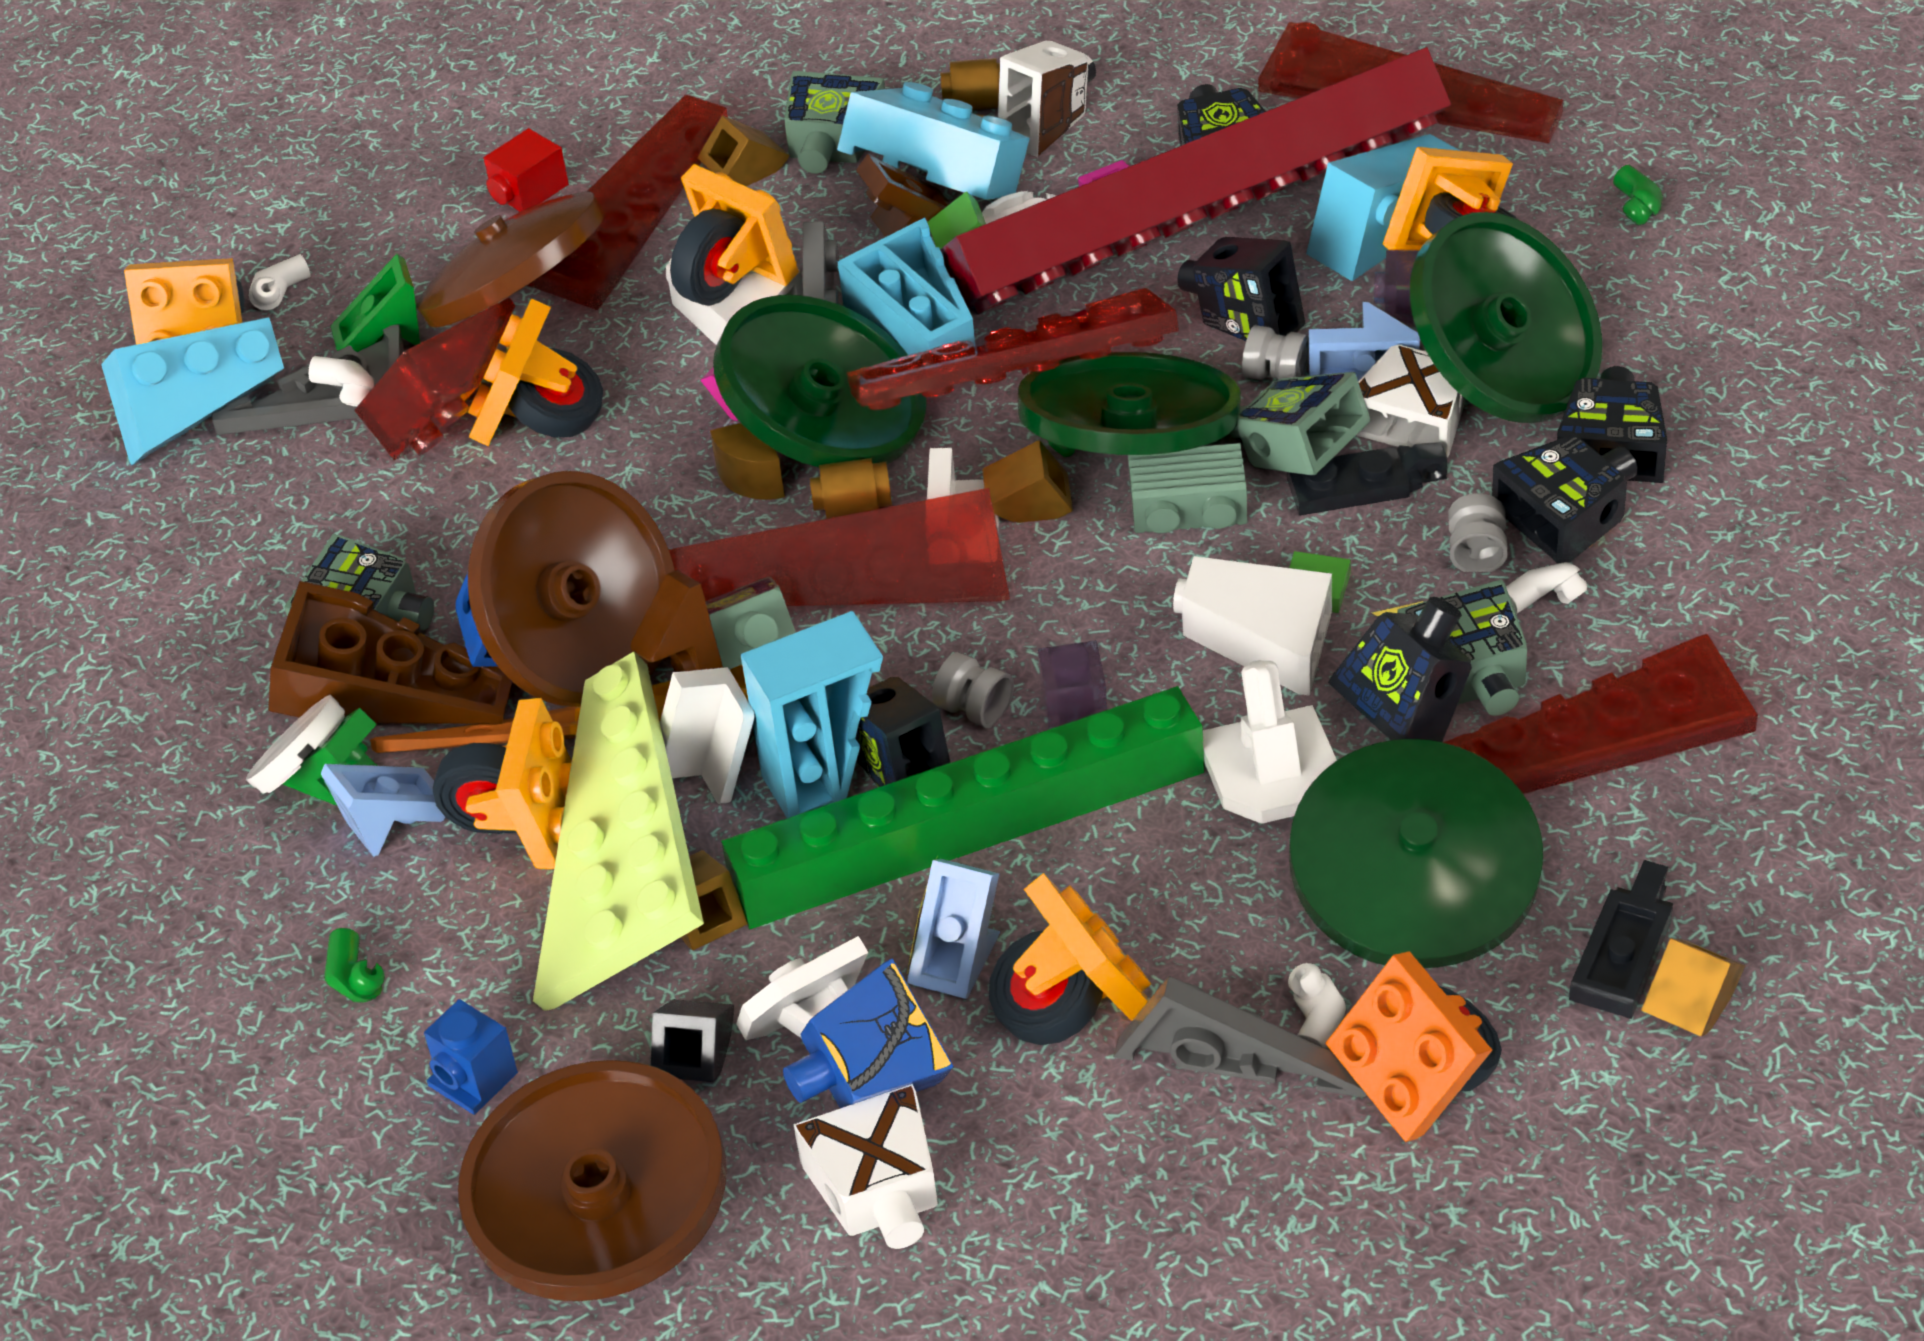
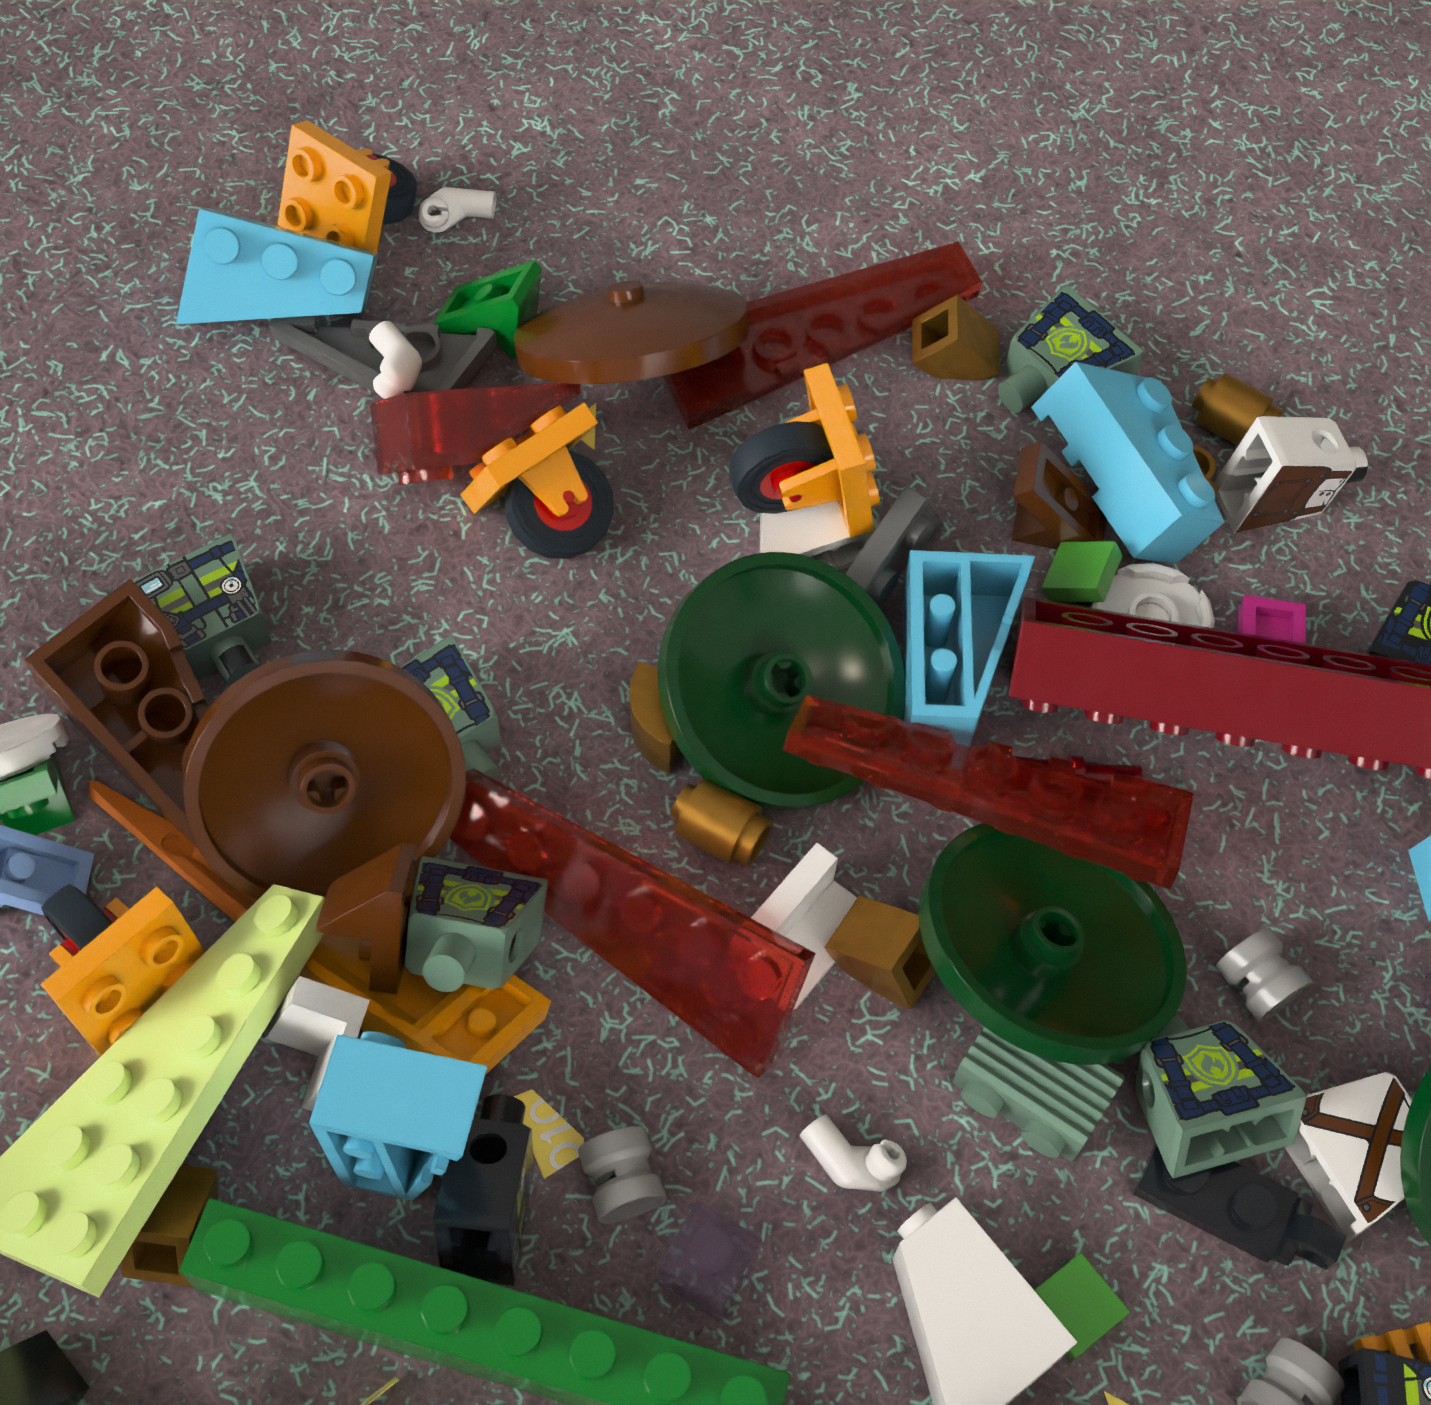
camera: 30 degrees right, 15 degrees up
(525, 171) = (749, 232): red brick -> none
(1113, 604) = (854, 1166): none -> white arm
(1246, 285) = (1296, 870): black torso -> none
(1358, 348) = (1355, 1042): light blue slope -> none

